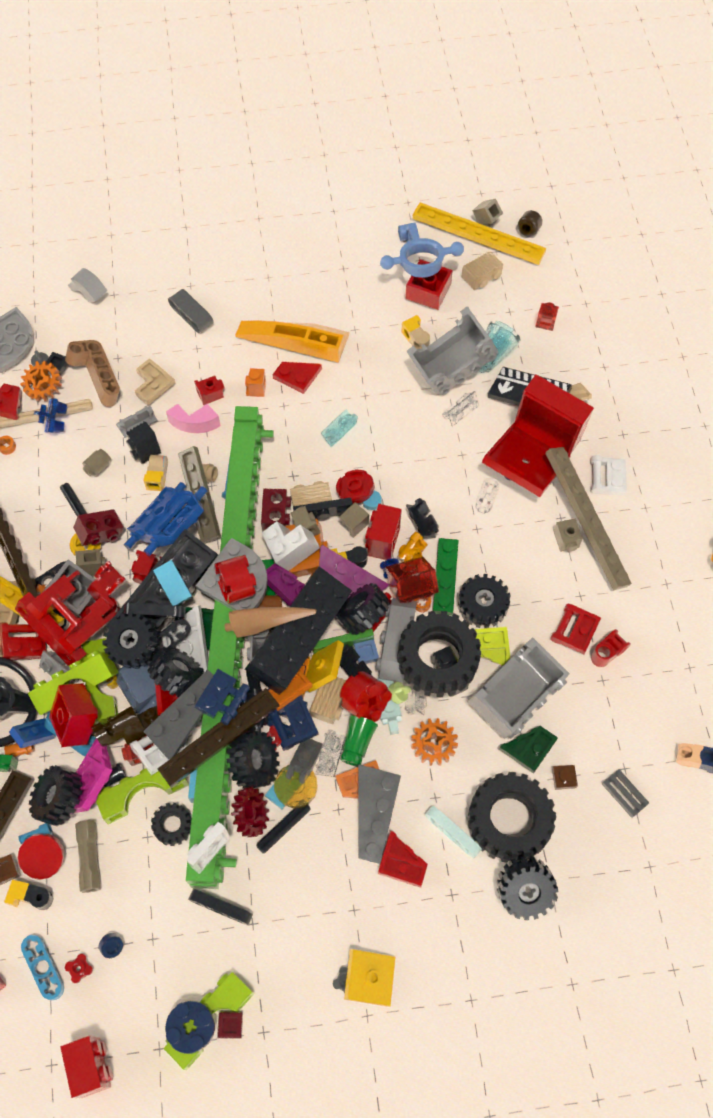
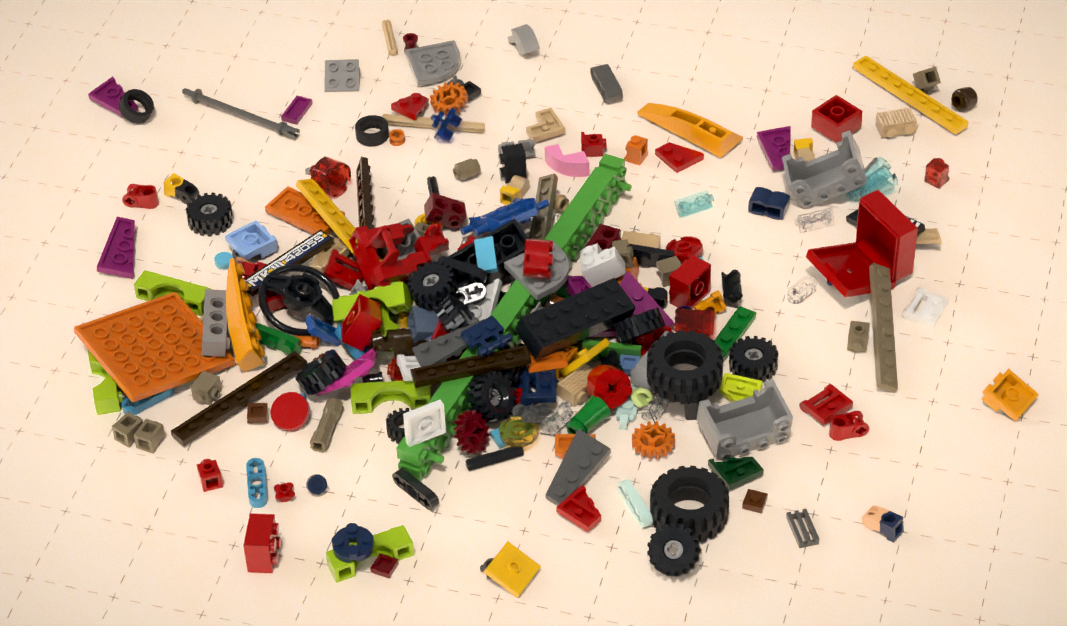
camera: 25 degrees right, 20 degrees down
(28, 893) = (268, 433): leg -> none
(94, 357) = (502, 93): medium nougat beam -> none
(255, 620) = (537, 294): medium nougat piece -> none
(384, 332) = (775, 145): none -> magenta wing
(410, 403) = (769, 203): none -> dark blue brick
(415, 245) = (840, 81): medium blue piece -> none

